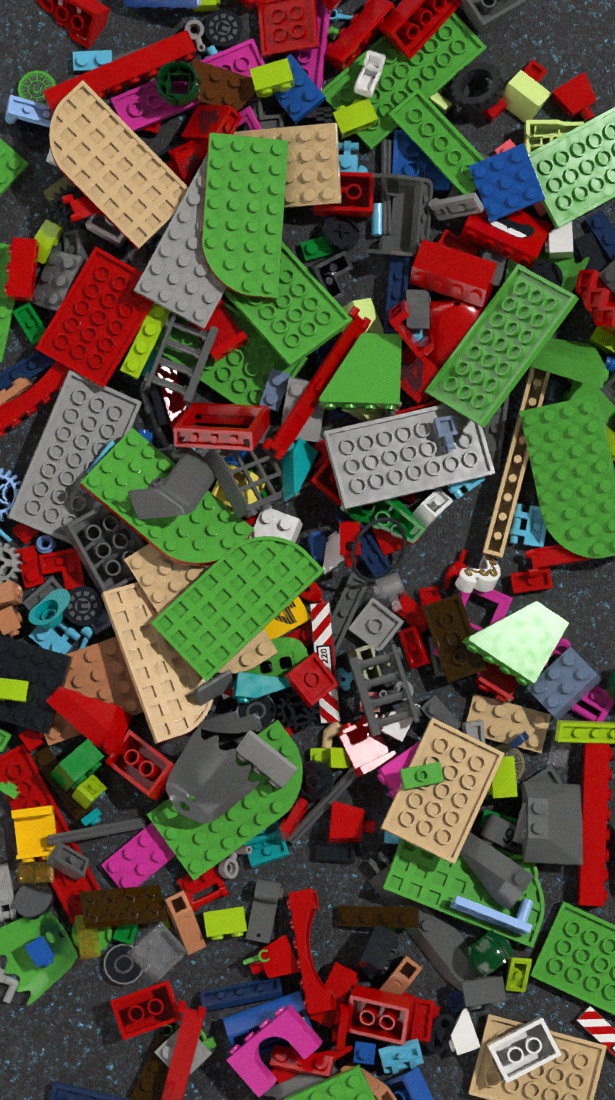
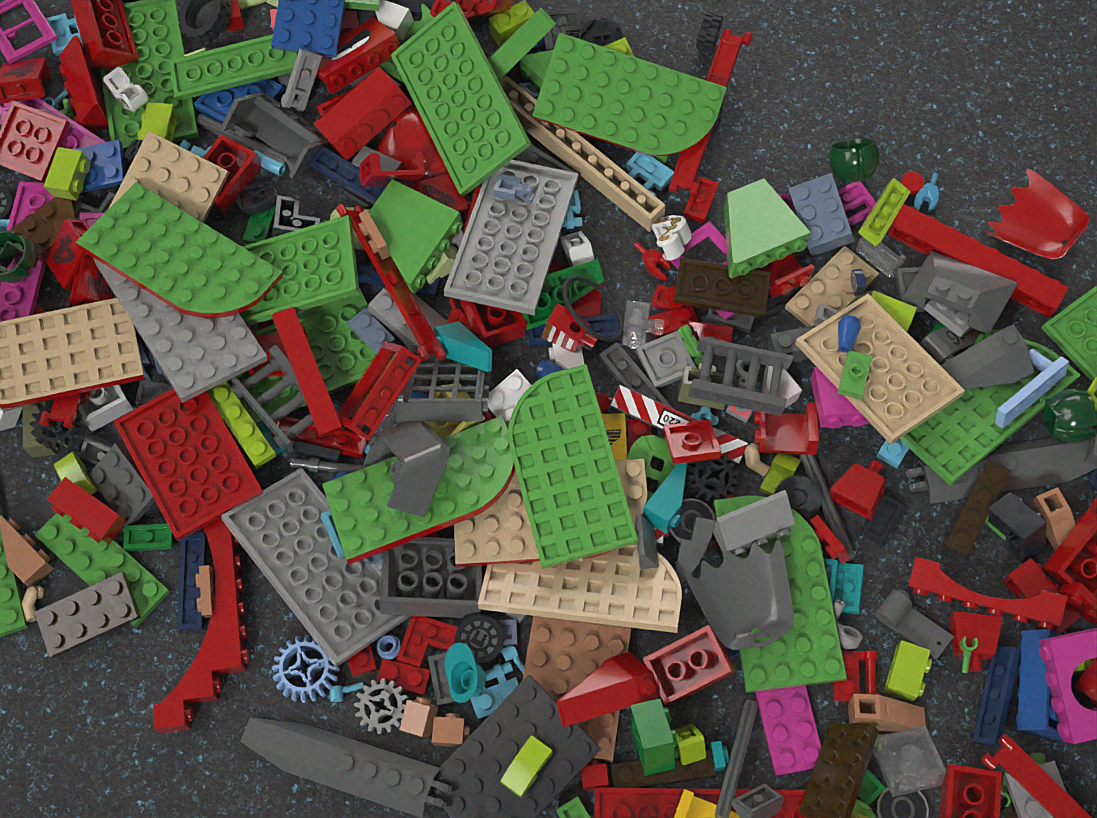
camera: 55 degrees left, 15 degrees down
(208, 365) = (306, 372): none -> red tile
(348, 342) = (376, 241): none -> nougat plate
(399, 636) = (691, 344): none -> bright green axle
(454, 754) = (848, 331): none -> blue cone

